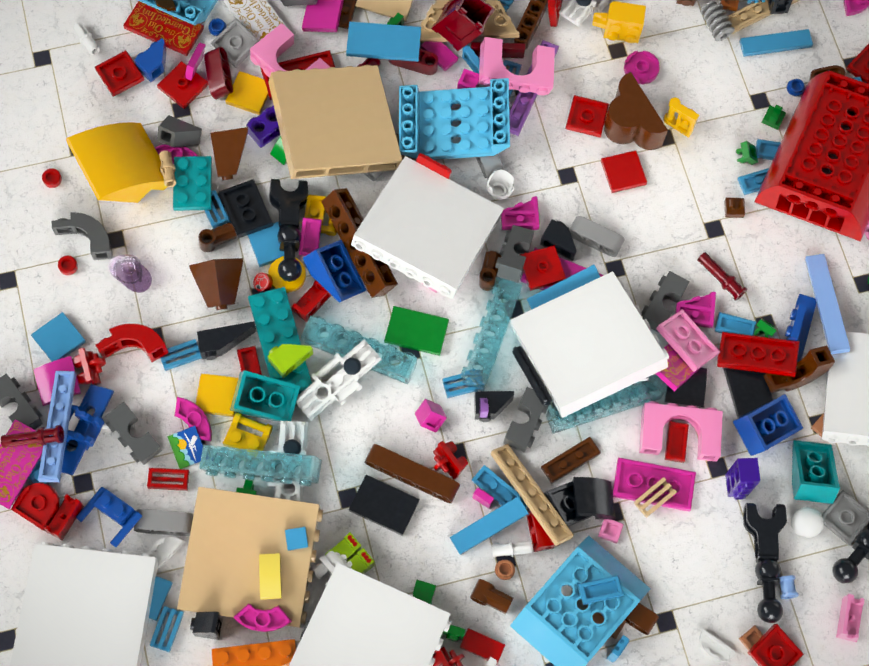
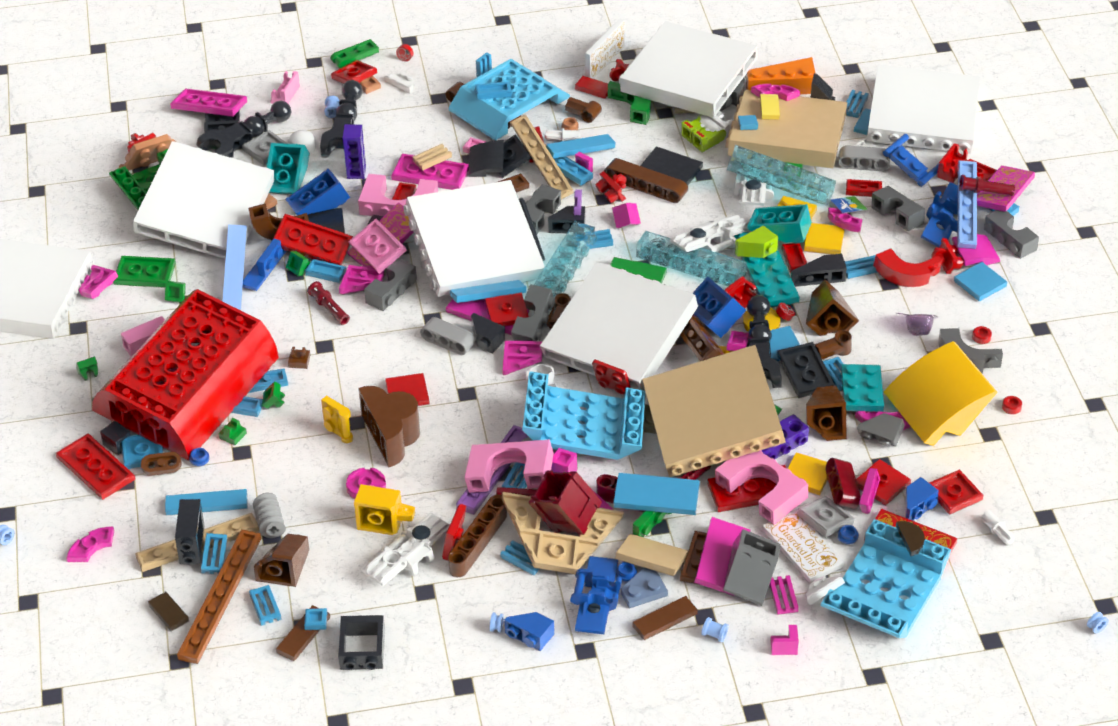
camera: 170 degrees left, 25 degrees down
(167, 168) = (889, 390): tan pin -> none
(587, 116) = (437, 437): red plate -> none

